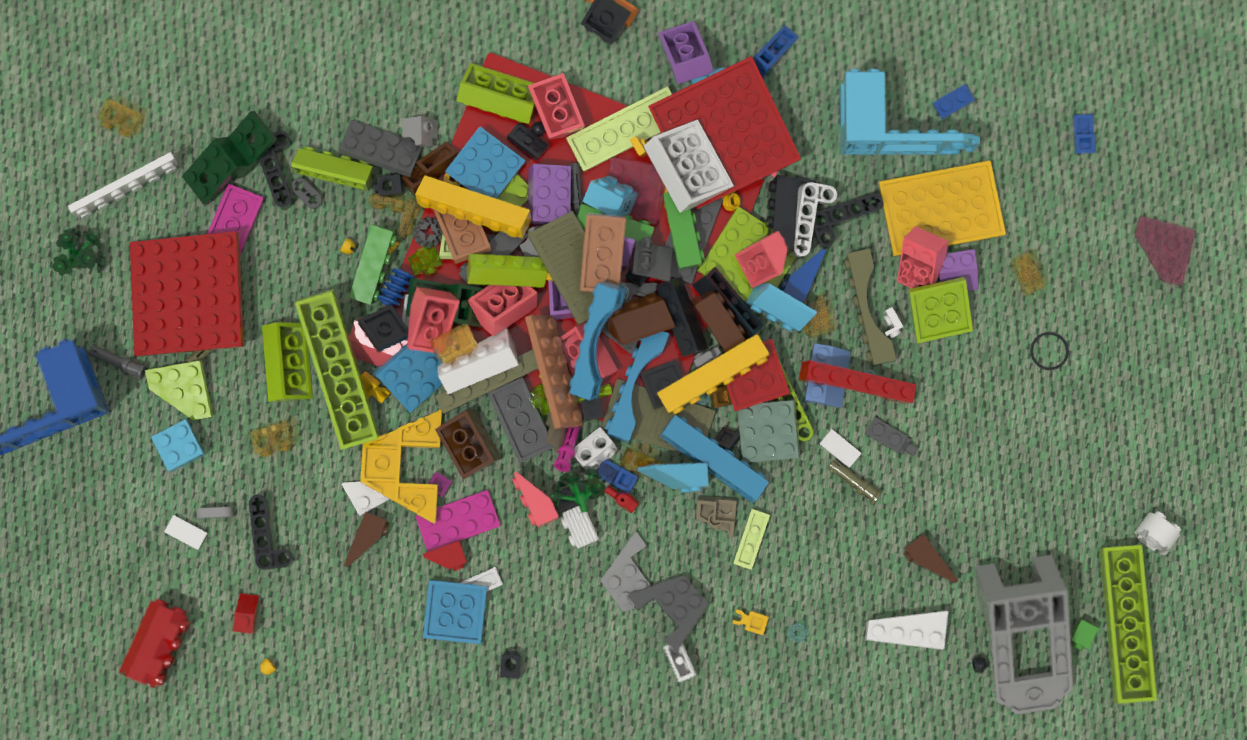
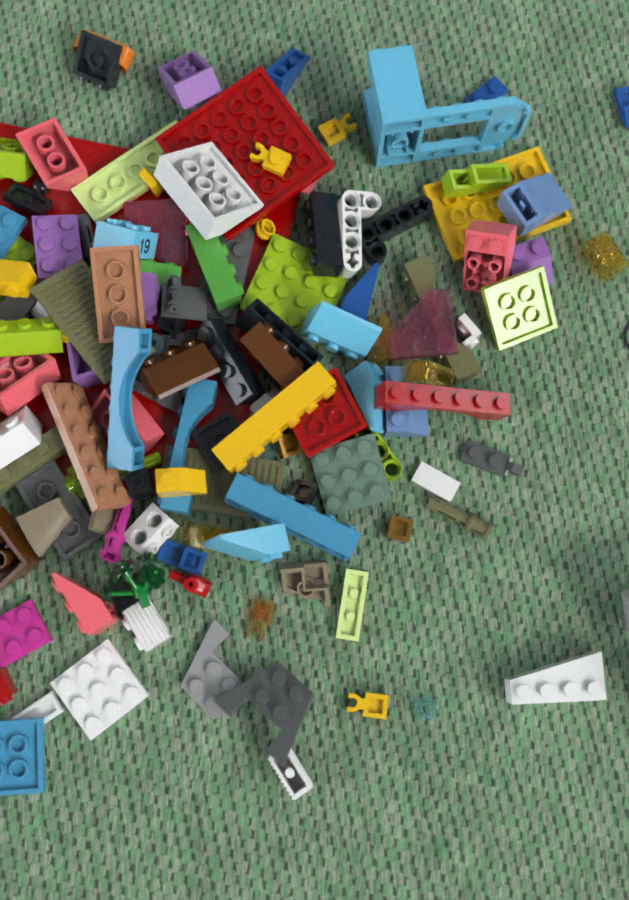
camera: 10 degrees left, 5 degrees down
(504, 672) = (79, 823): black brick -> none
(509, 430) = (45, 524): none -> dark tan slope
(534, 572) = (99, 689): none -> white plate
(628, 416) = (180, 482): none -> yellow slope
(675, 534) = (262, 614): none -> clear orange plate
(748, 147) = (273, 160): none -> yellow plate
(763, 259) = (309, 275): coral slope -> none
(792, 354) = (362, 383): none -> medium azure slope
(802, 483) = (399, 528): none -> pearl gold plate
(808, 115) = (334, 130): none -> yellow plate
(850, 358) = (429, 373): none -> clear yellow brick
(855, 317) = (426, 329): none -> clear pink plate
(925, 185) = (475, 179): none -> lime slope
(926, 557) = (558, 589): reddish brown slope -> none
(973, 216) = (532, 203): none -> medium blue slope

